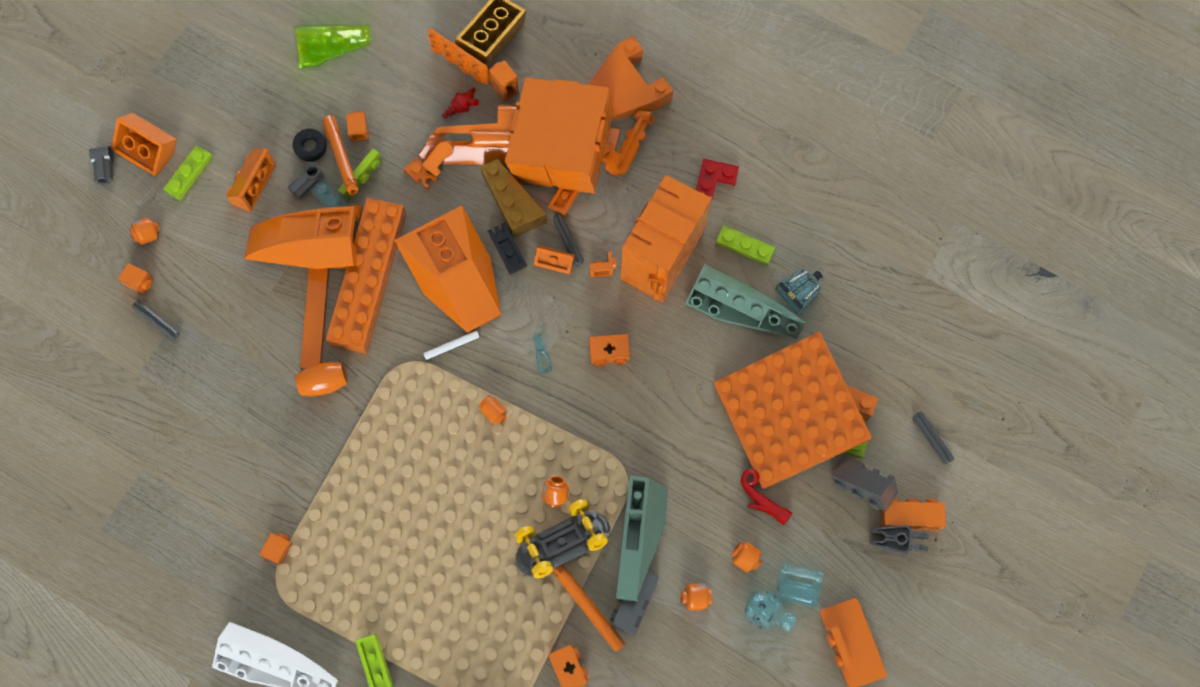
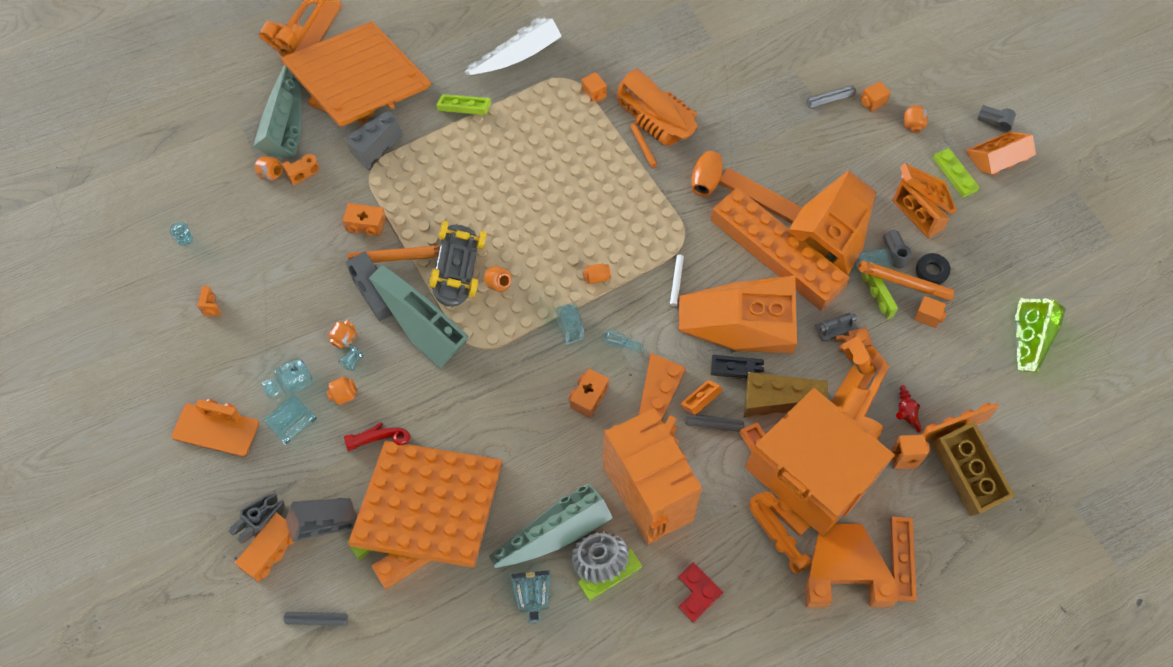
camera: 125 degrees right, 10 degrees down
(228, 177) = (929, 186): none -> orange wing
(270, 467) = (660, 112): none -> orange connector
(317, 462) = (643, 145): none -> orange bar
(416, 192) = (836, 326): none -> dark grey hinge
(557, 401) = (570, 321): none -> clear light blue torso
(563, 299) = (660, 384): none -> orange wing
(589, 52) = (903, 558): none -> orange plate
(711, 573) = (351, 357): none -> clear light blue bush
(745, 242) = (600, 557): none -> light grey gear

